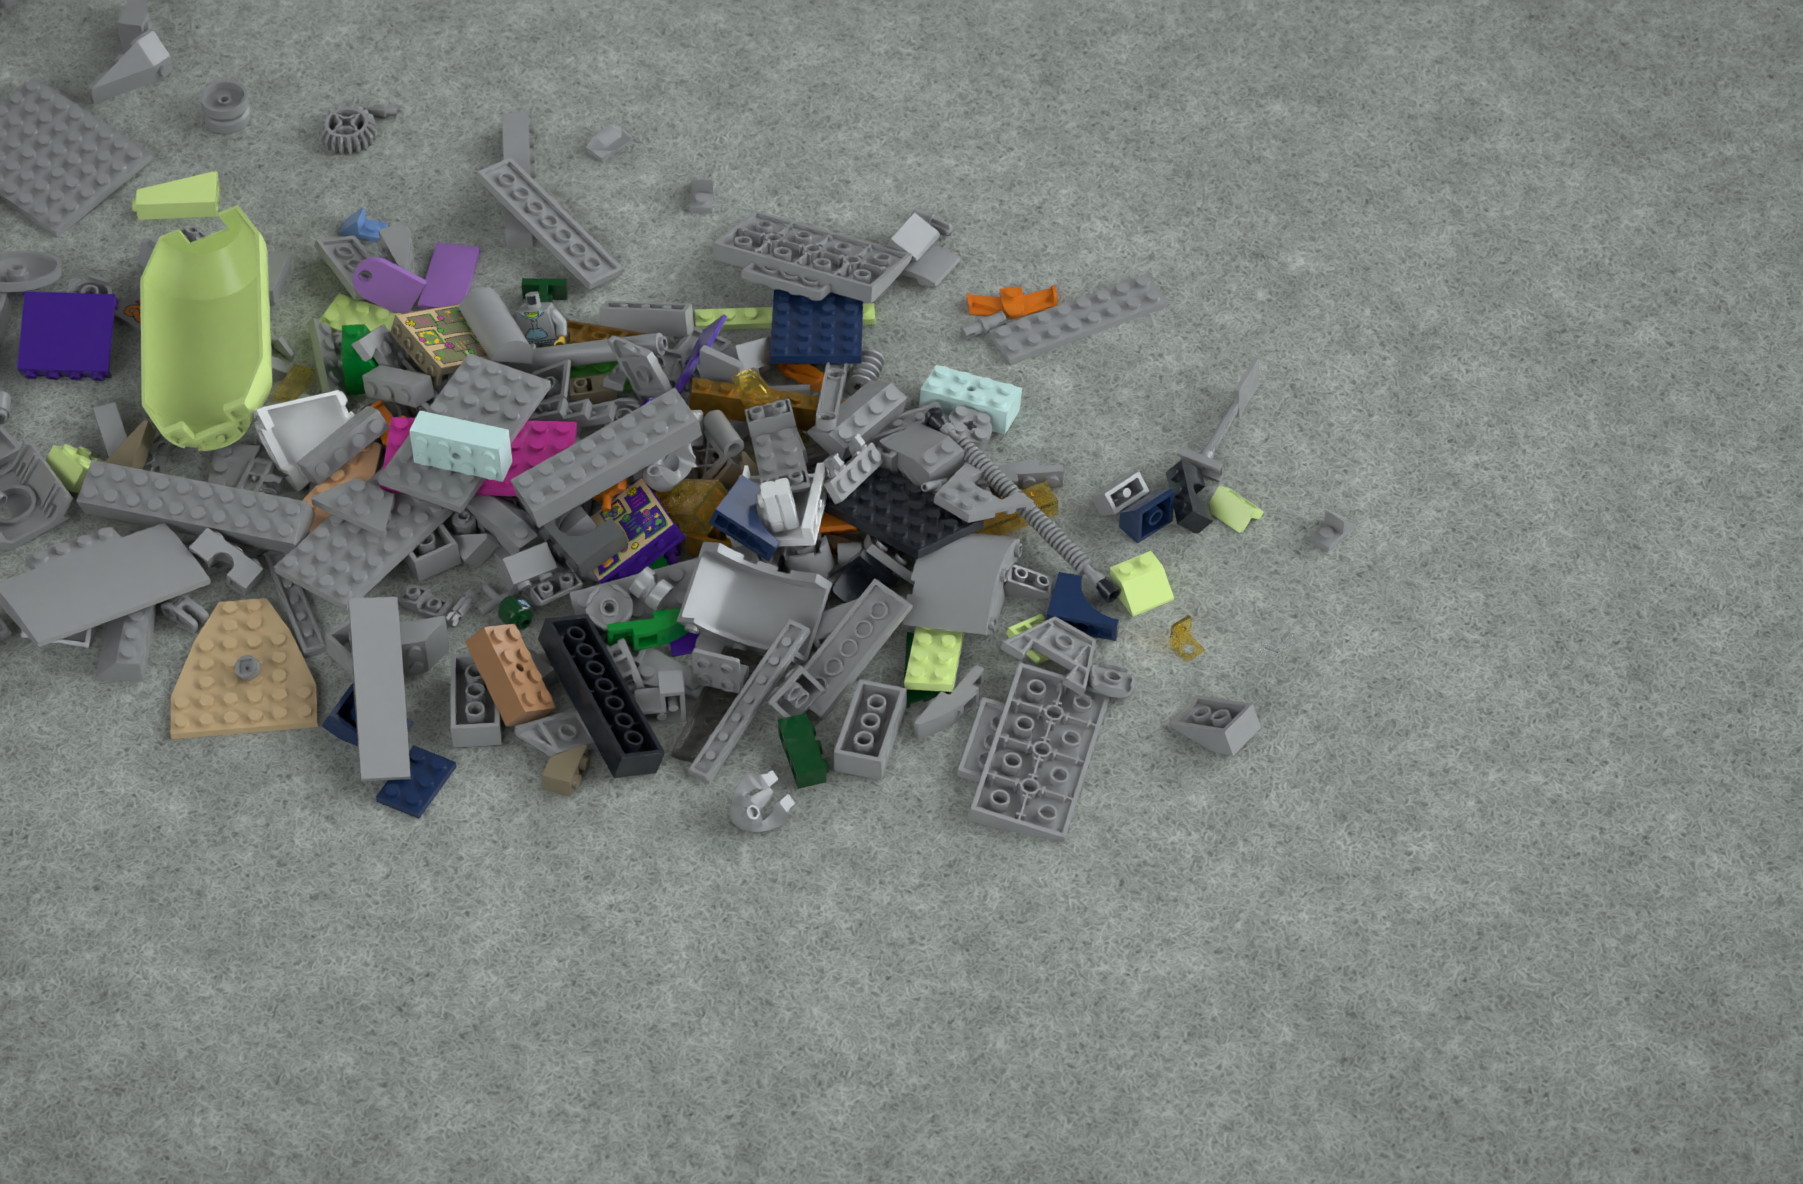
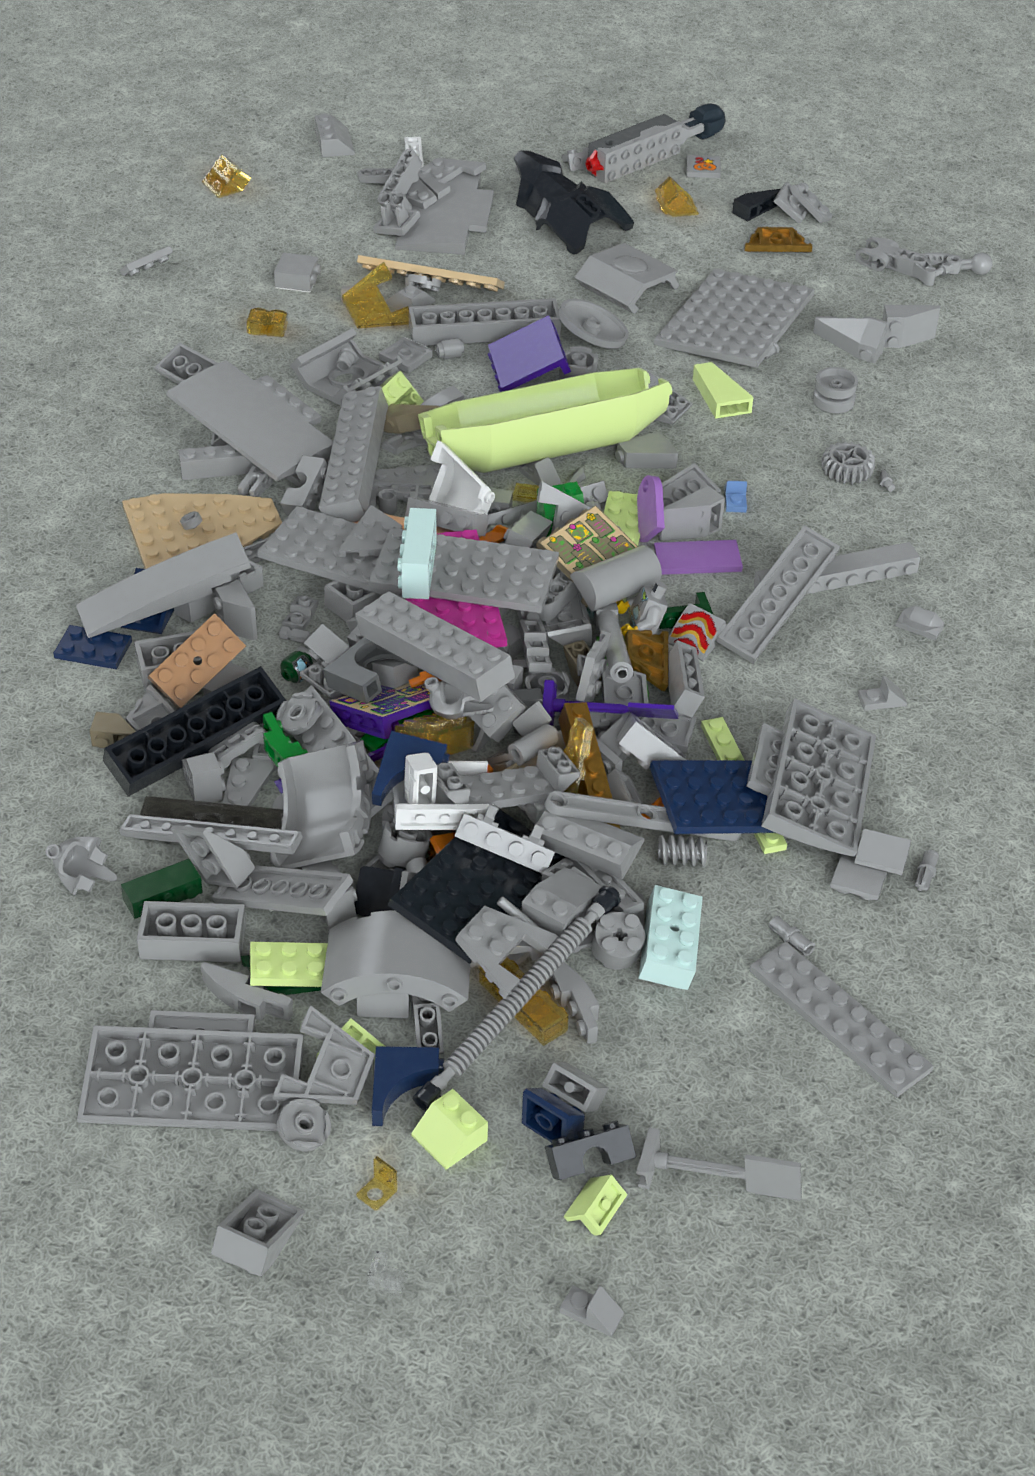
camera: 75 degrees right, 5 degrees down
(575, 297) = (697, 629): none -> slope
(651, 588) = (318, 730): light grey wheel -> none
(718, 366) = (608, 723): light grey tile -> none
(718, 671) = (239, 806): light grey bracket -> none
(1012, 302) = (839, 957): orange plate -> none

